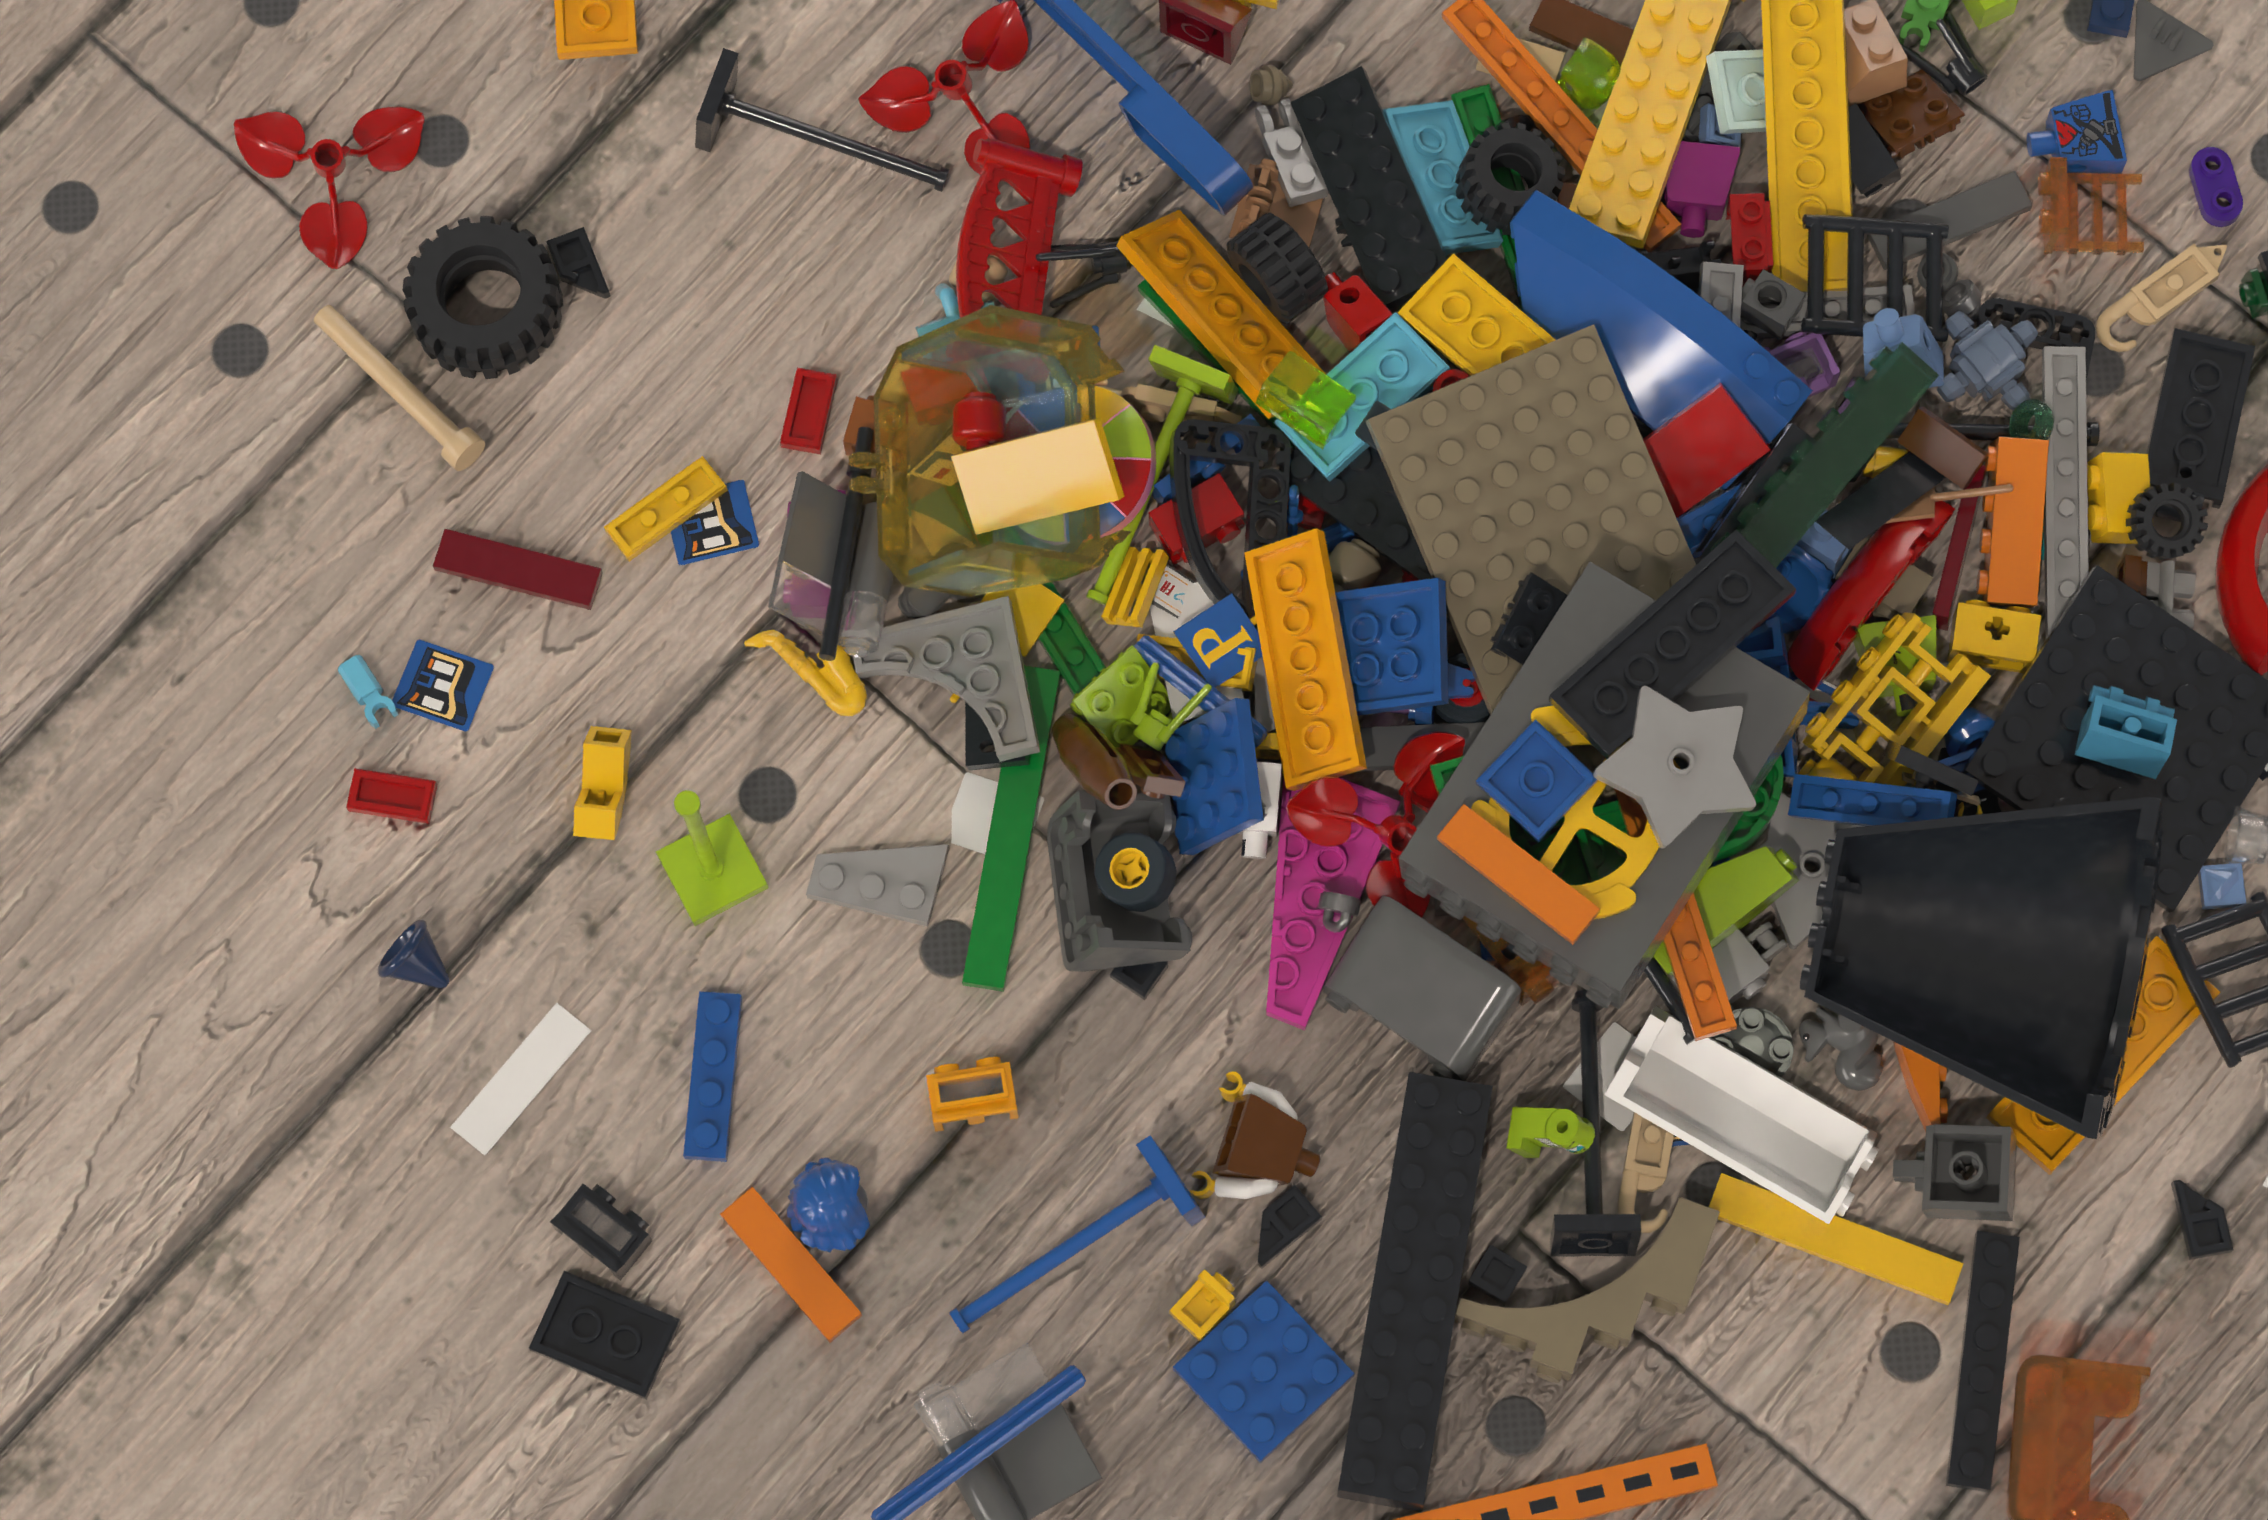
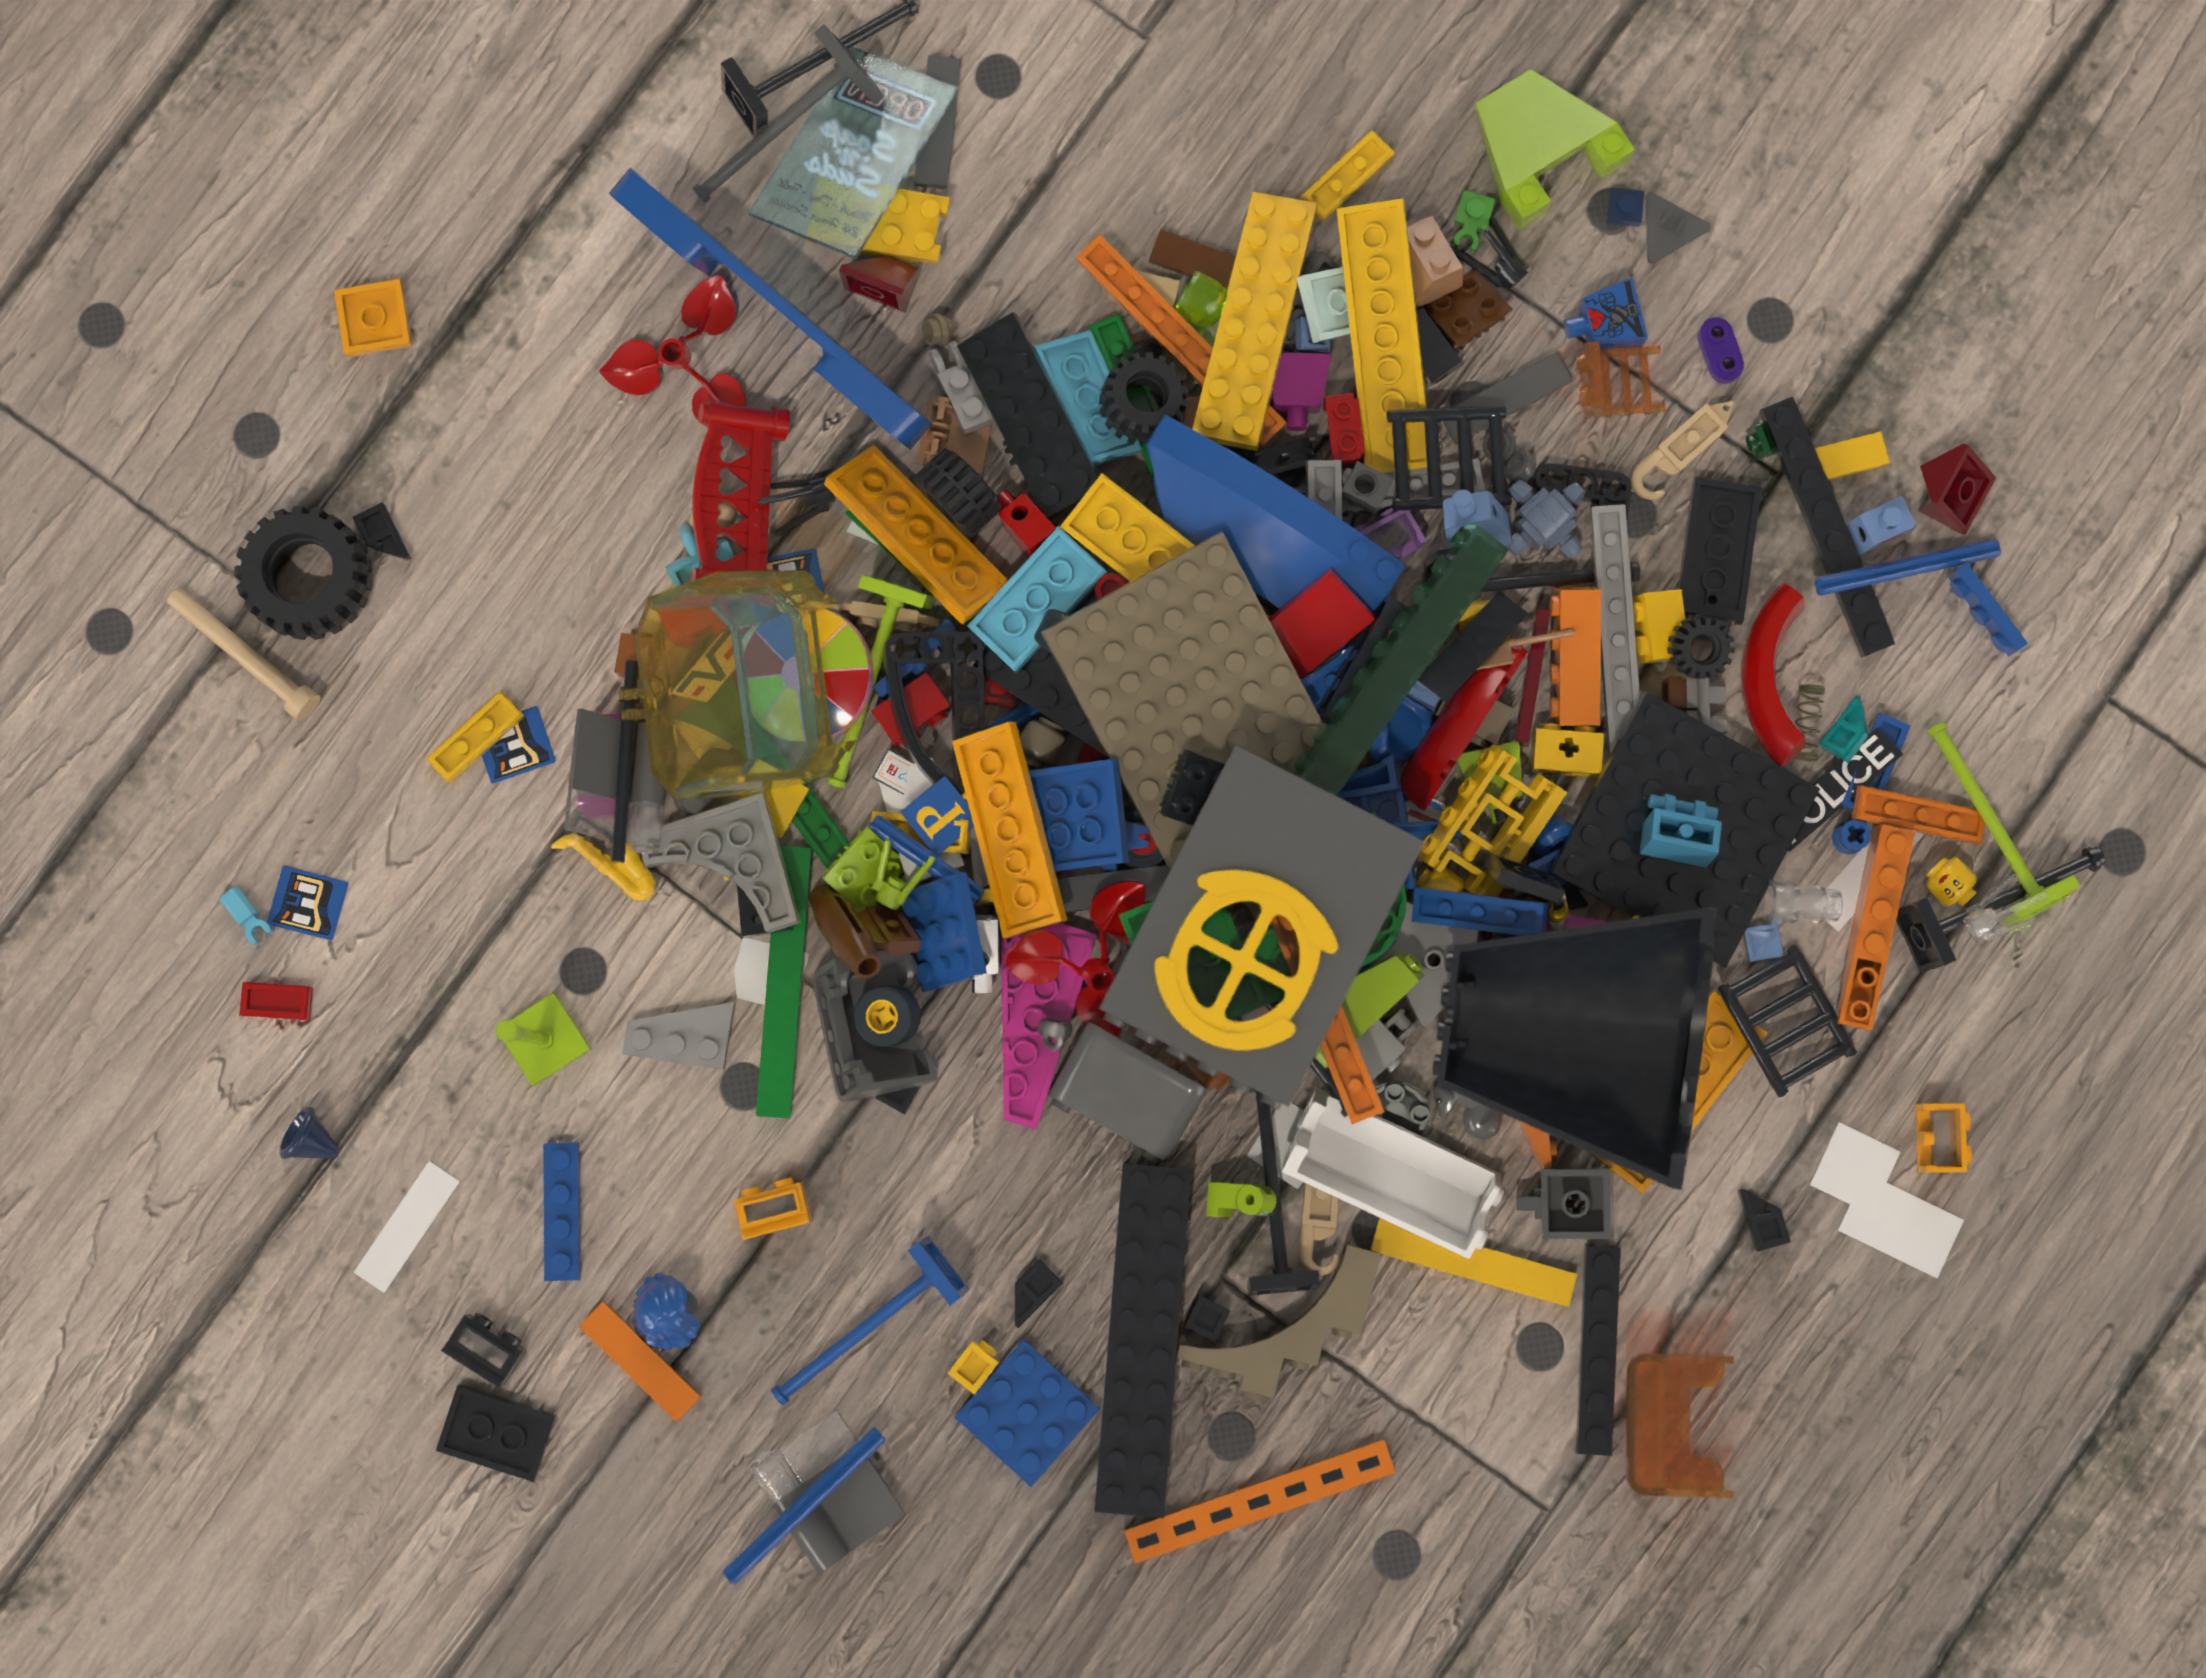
camera: 10 degrees left, 10 degrees up
(331, 230) = (173, 521): red plant -> none
(517, 569) = (358, 800): dark red tile -> none
(603, 783) = (448, 977): yellow brick -> none
(721, 102) = (484, 387): black tile -> none
(808, 411) = (584, 643): red tile -> none
(978, 420) = (724, 650): red head -> none
(1038, 476) = (776, 696): yellow tile -> none
(1129, 586) = (861, 772): yellow tile -> none
(1258, 1145) = (1007, 1231): reddish brown torso -> none
(1294, 515) = (990, 699): blue hand -> none
(1305, 399) = (991, 609): clear neon green panel -> none
(1518, 874) = (1198, 1018): orange tile -> none
(1536, 780) = (1206, 937): blue tile -> none
(1672, 795) = (1295, 922): light grey plate -> none
(1673, 641) = (1308, 814): black plate -> none
(1943, 447) = (1515, 600): reddish brown tile -> none
(2021, 416) = (1595, 568): clear green piece -> none

